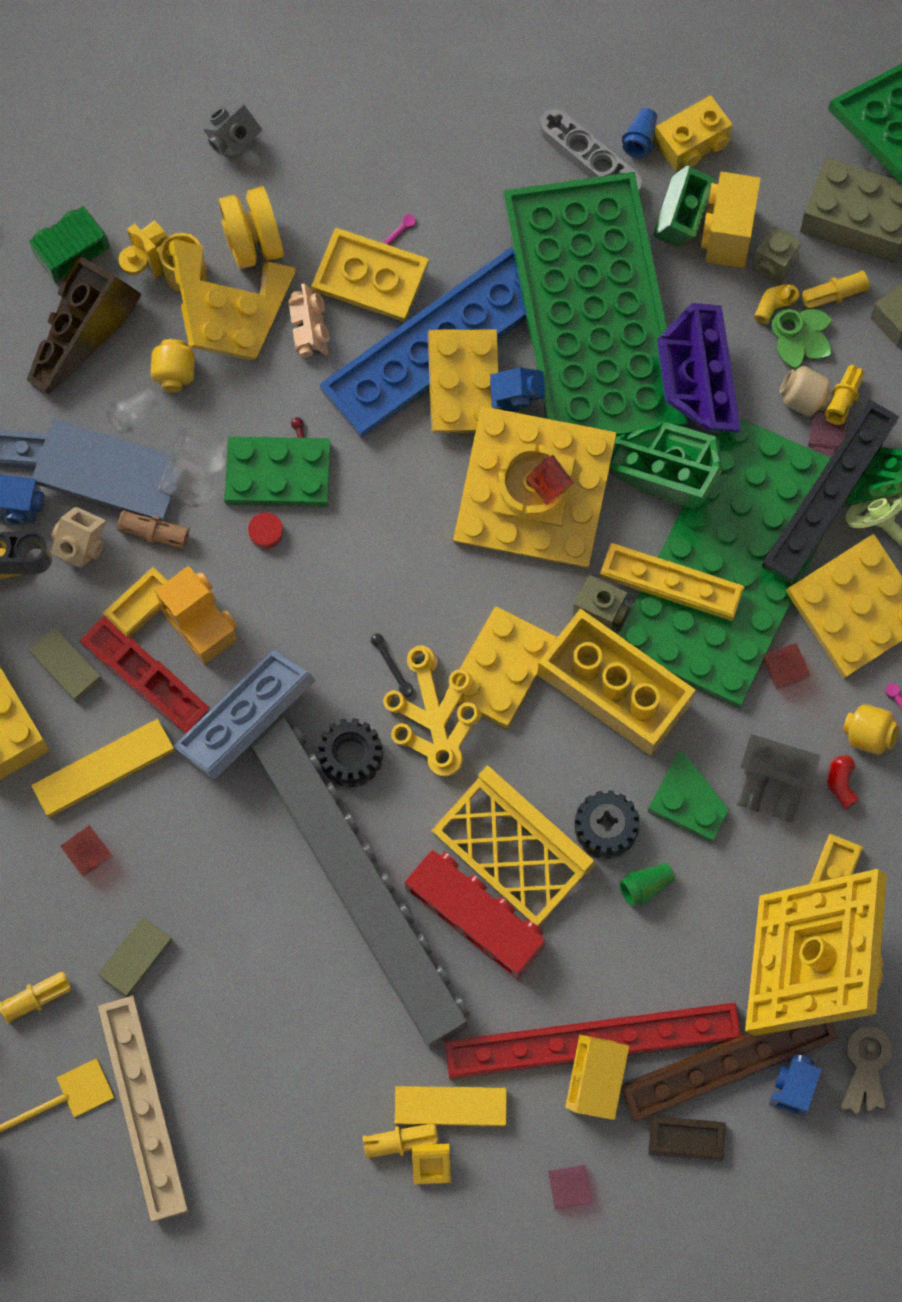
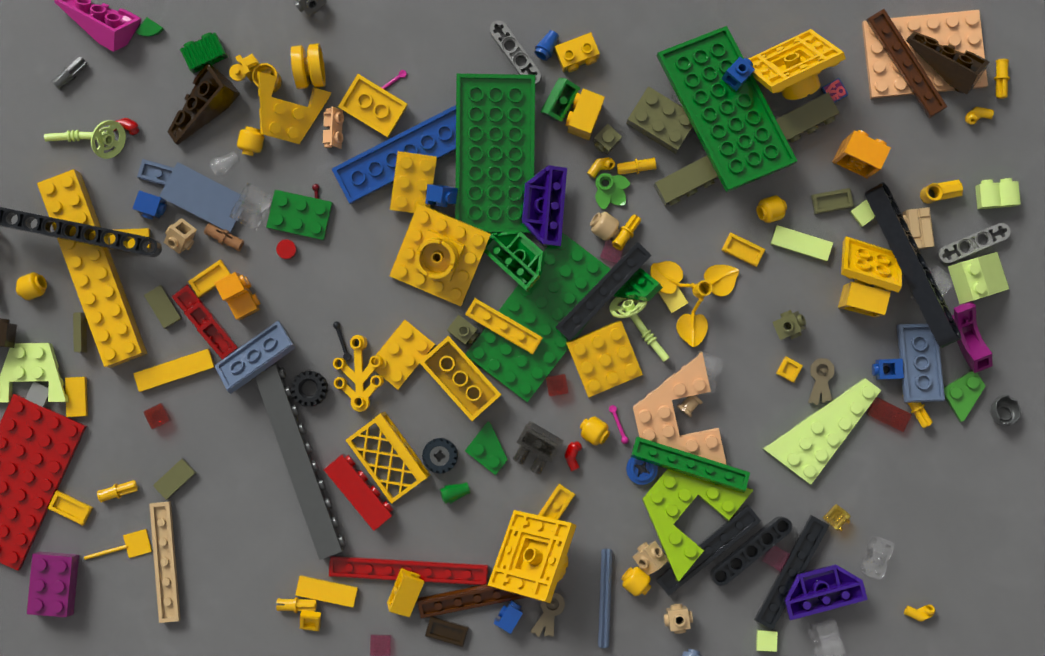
camera: 10 degrees right, 15 degrees up
(549, 480) = (443, 264): clear red plate -> none

